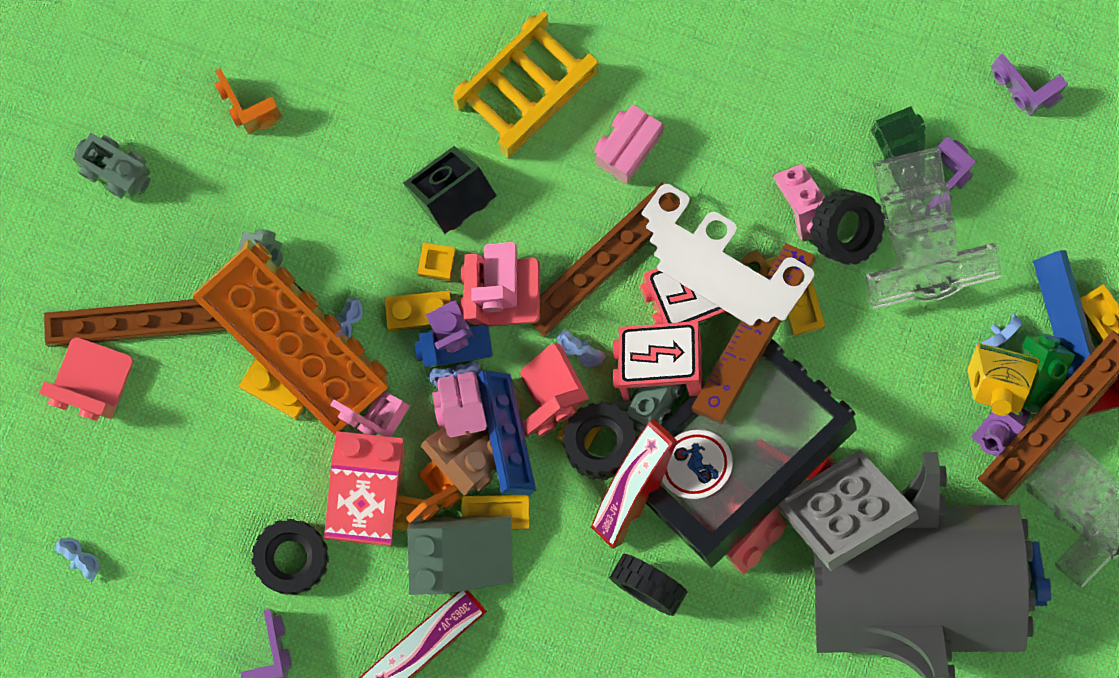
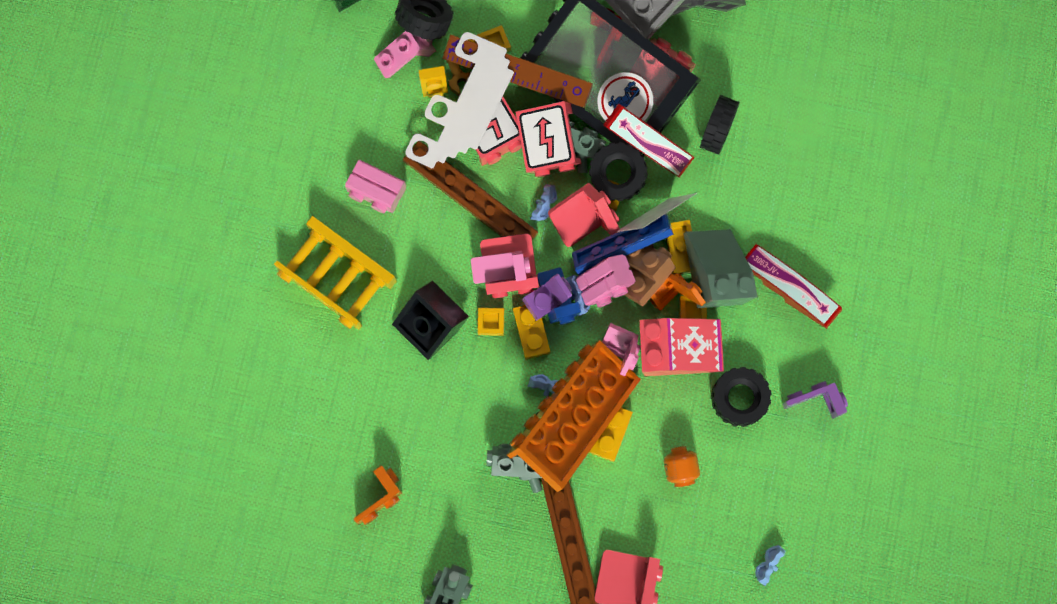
camera: 100 degrees left, 0 degrees up
(214, 466) = (681, 466): none -> orange head
(538, 480) = (656, 212): none -> white sticker
(753, 226) = (433, 81): none -> yellow plate

